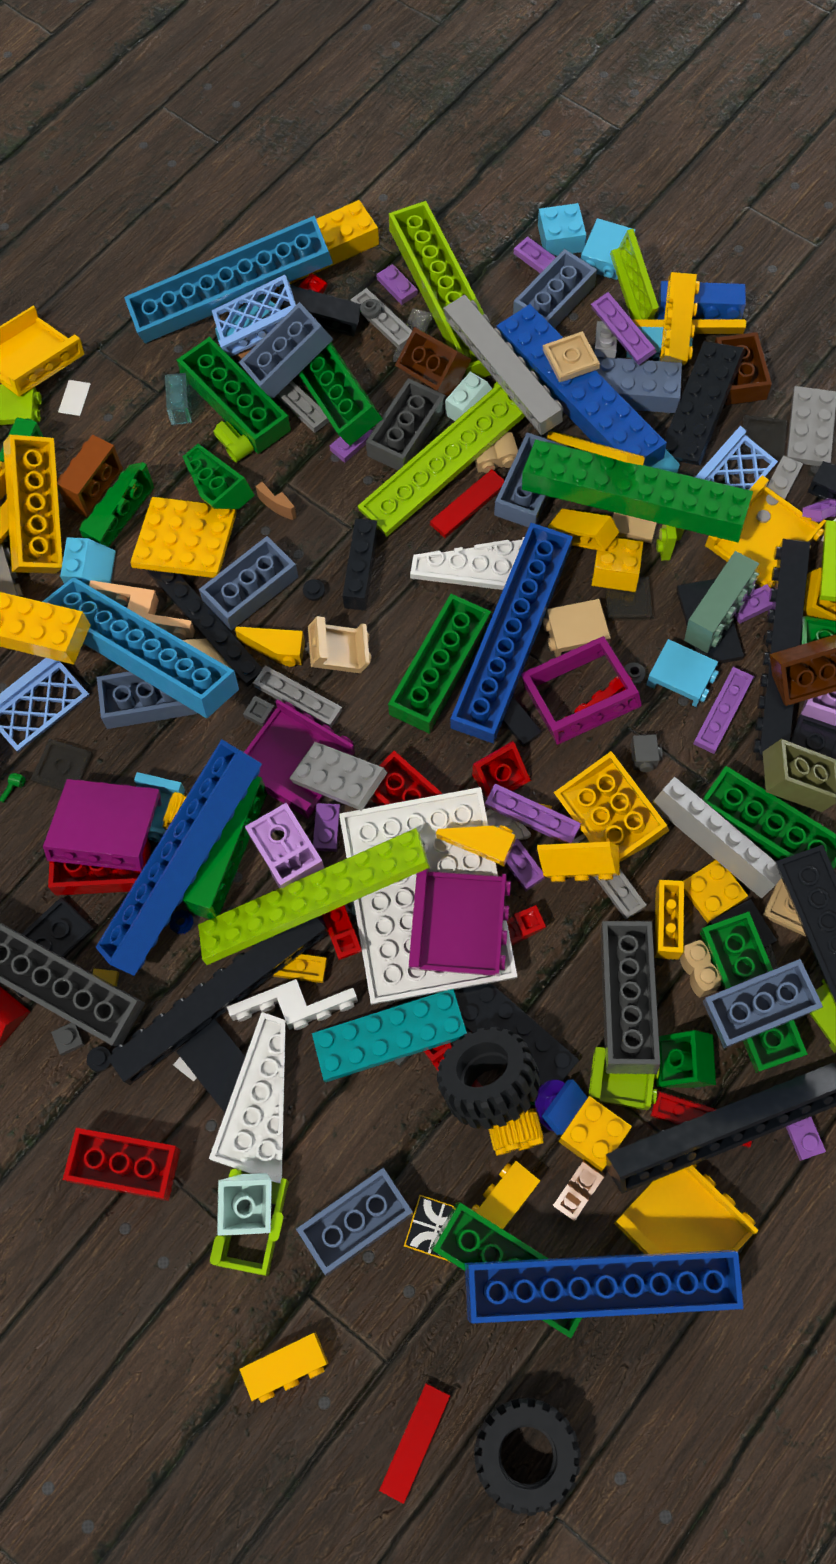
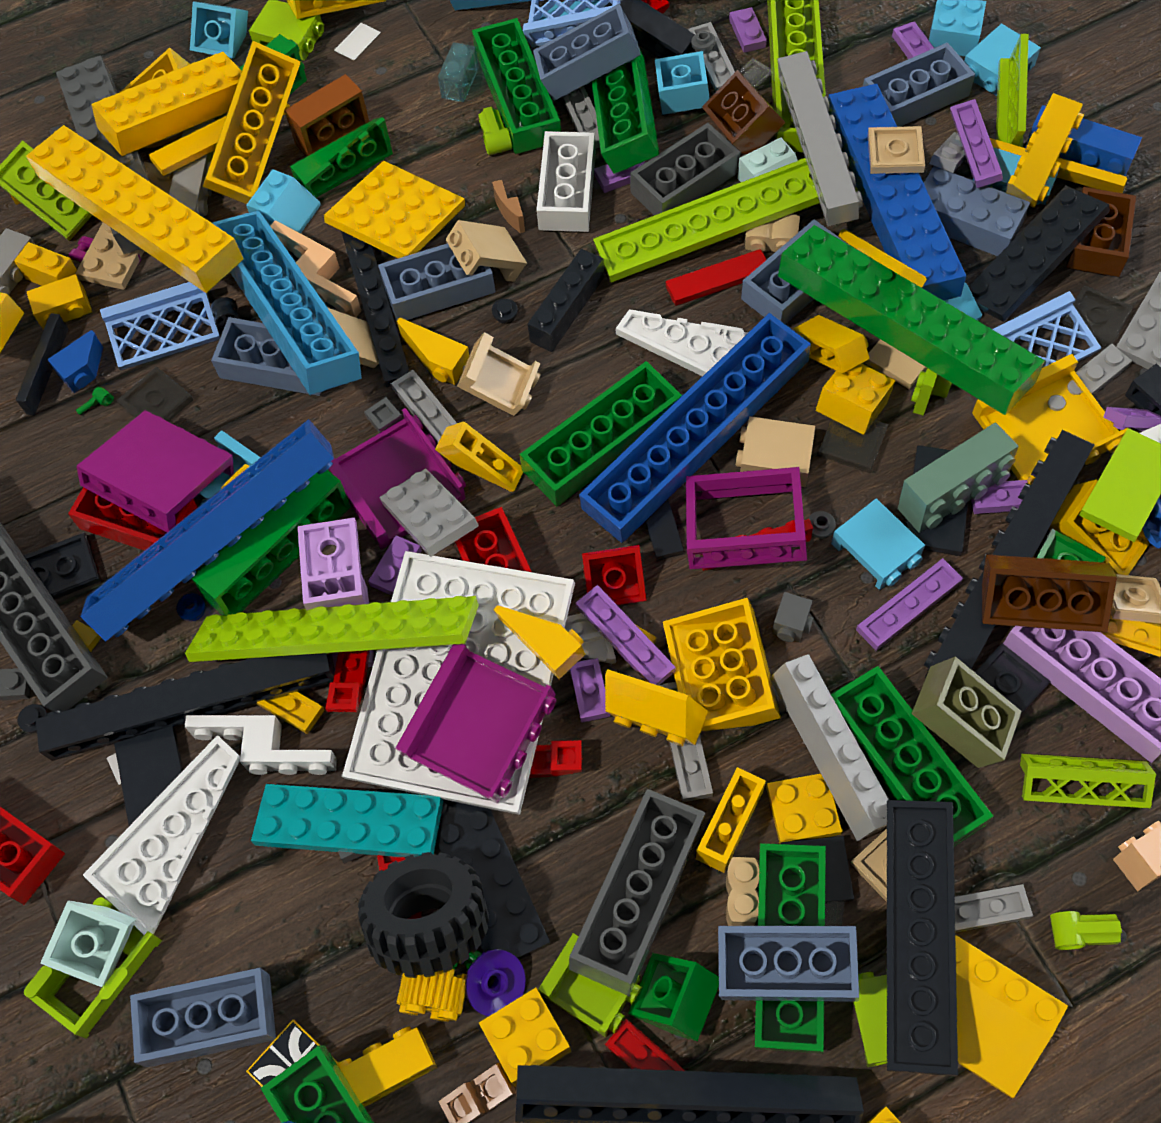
camera: 25 degrees right, 5 degrees down
(85, 673) = (222, 309): none -> black wheel
(216, 481) = (456, 166): green wedge -> none
(279, 544) = (485, 246): none -> tan panel
(314, 464) = (566, 181): none -> white brick
(353, 716) = (479, 456): none -> yellow slope
(368, 349) = (682, 82): none -> medium azure brick
(564, 1107) = (503, 988): blue tile -> none

